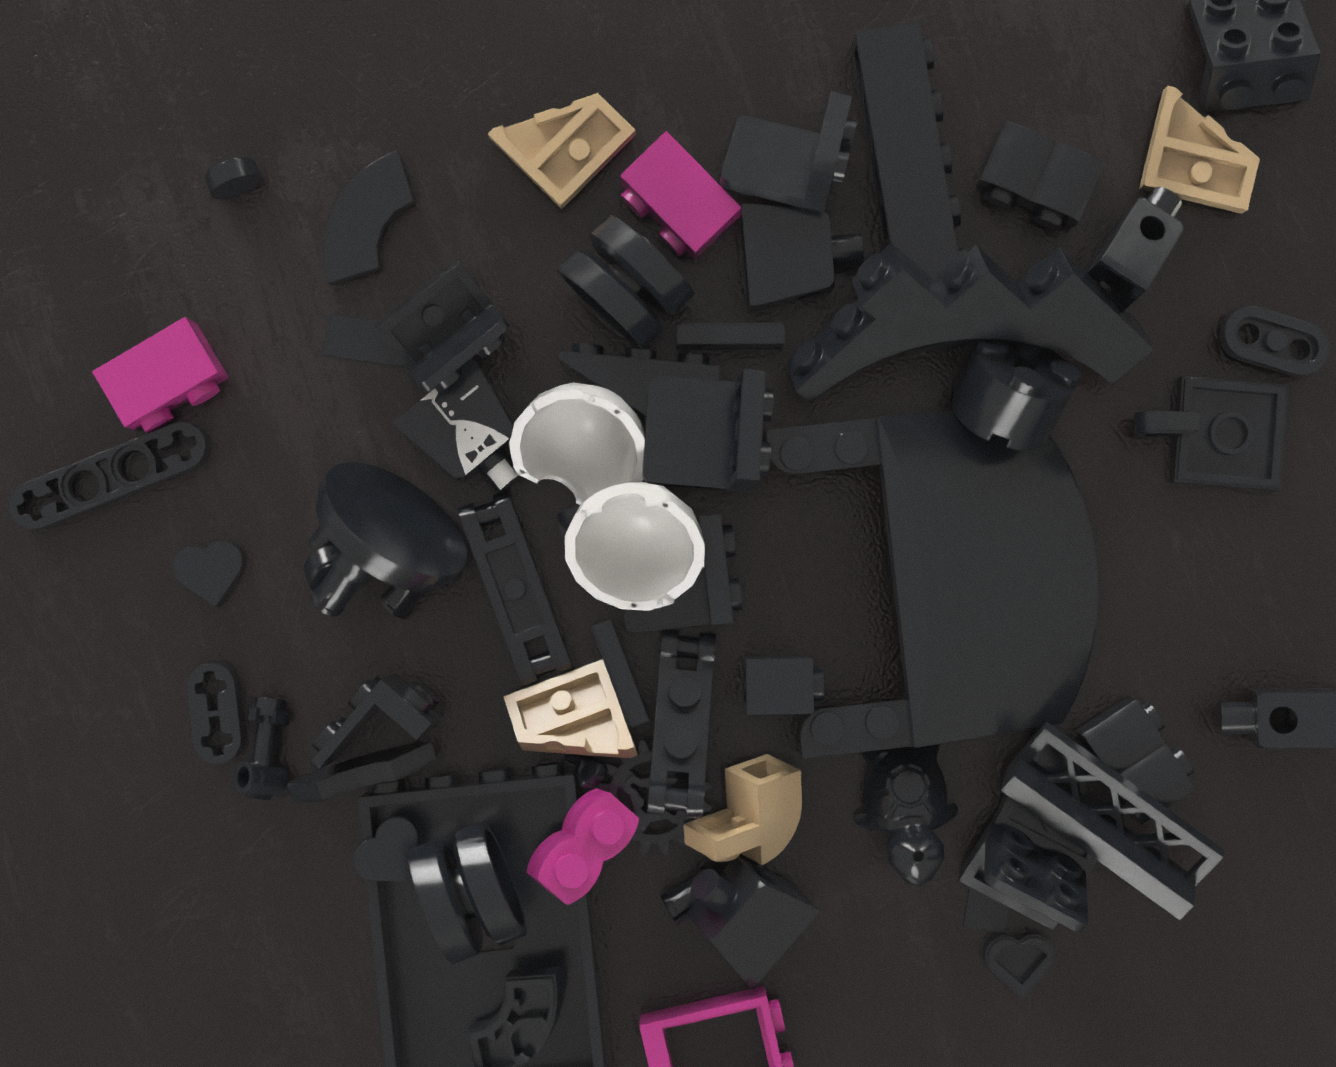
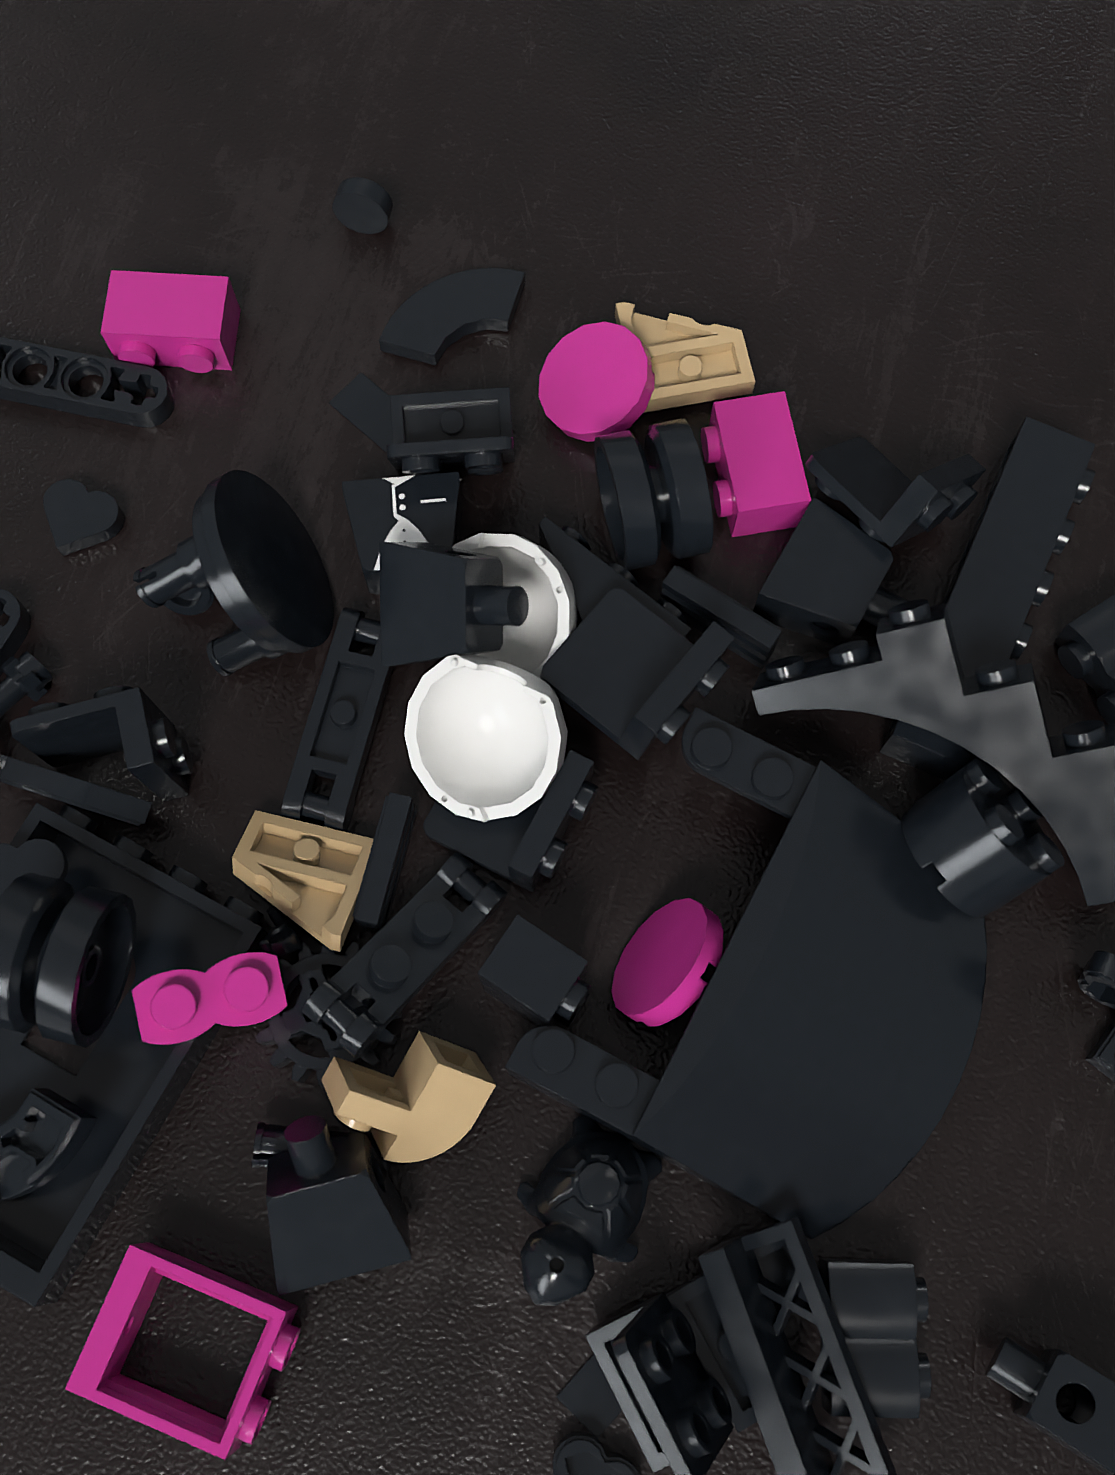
camera: 35 degrees right, 15 degrees down
(517, 209) = (596, 381): none -> dark pink tile
(539, 472) = (443, 603): none -> black torso
(857, 613) = (665, 961): none -> dark pink tile

